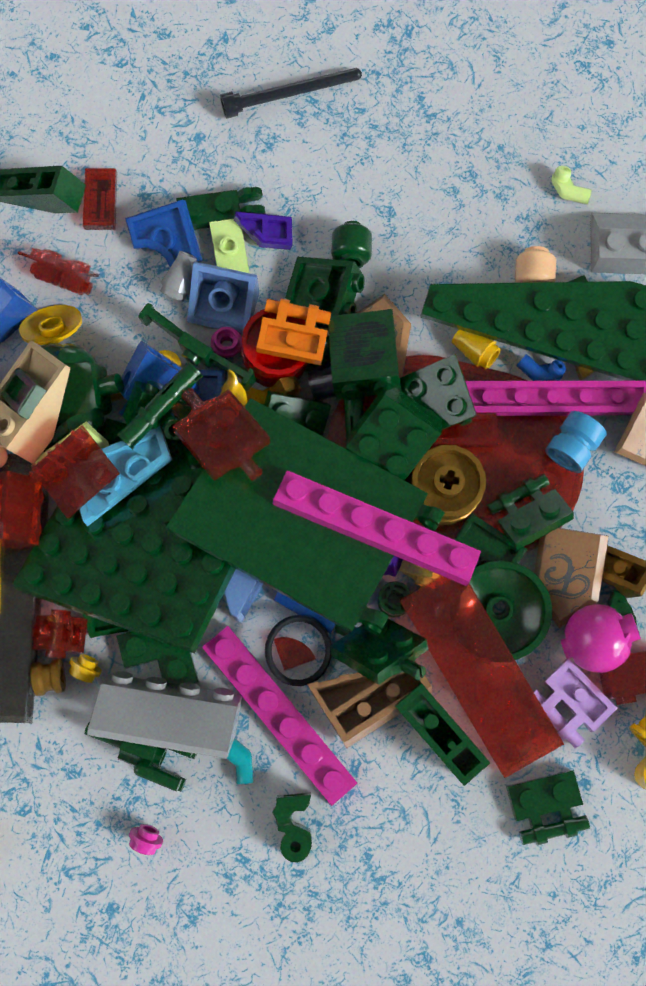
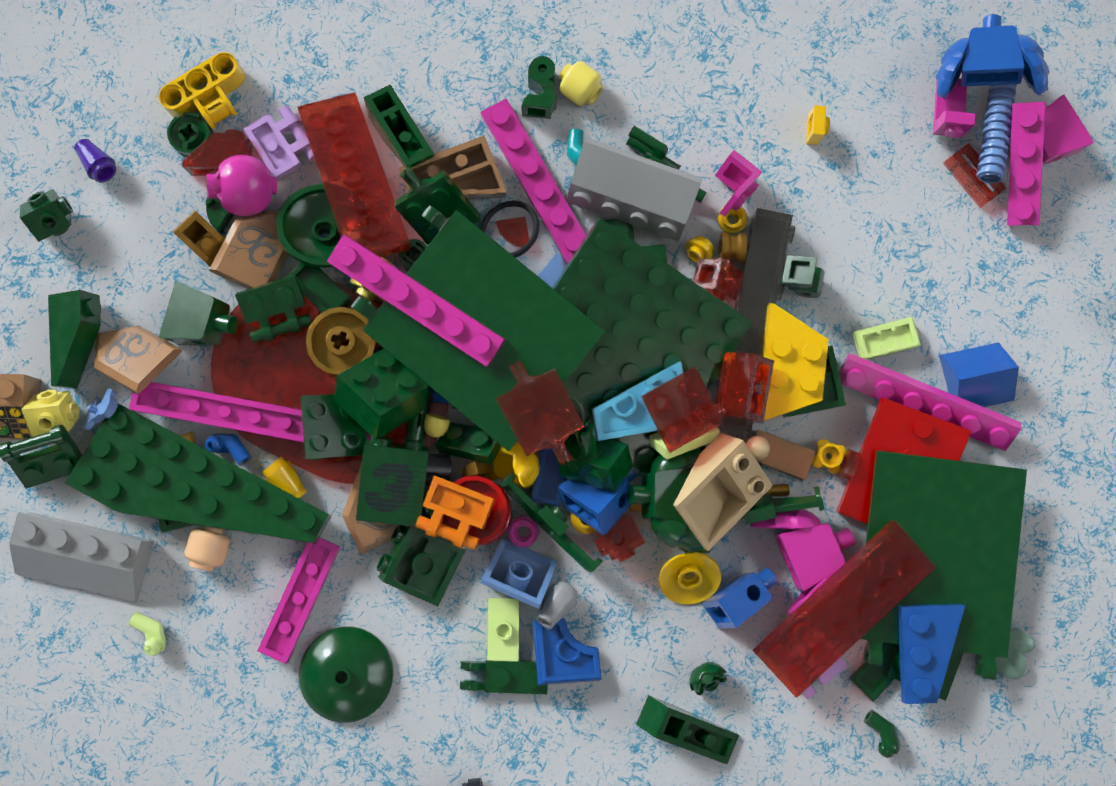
camera: 175 degrees left, 5 degrees up
(22, 238) = (706, 677): none -> dark green plate
(23, 393) = (721, 493): tile -> none
(43, 709) = (741, 217): none -> yellow plate
(45, 759) = (739, 176): none -> dark pink bracket
(55, 270) = (680, 641): clear red hinge -> none
(100, 199) = (624, 710): clear red tile -> none
(122, 344) = (625, 548): none -> clear red brick
(145, 839) = (667, 100): dark pink plate -> none
(159, 405) = (584, 462): dark green pin -> none
(249, 840) = (580, 83): none -> light yellow head
(266, 229) = (462, 642): dark purple tile -> none
(334, 424) = (436, 425): none -> light yellow hinge
(352, 243) = (381, 607): dark green head -> none
(370, 200) = (361, 658): none -> dark green dish
(434, 238) = (298, 600): none -> dark pink plate
(544, 796) = (324, 74): dark green plate -> none
(578, 438) = (213, 364): dark azure wheel -> none
(609, 490) = (196, 318): none -> torso

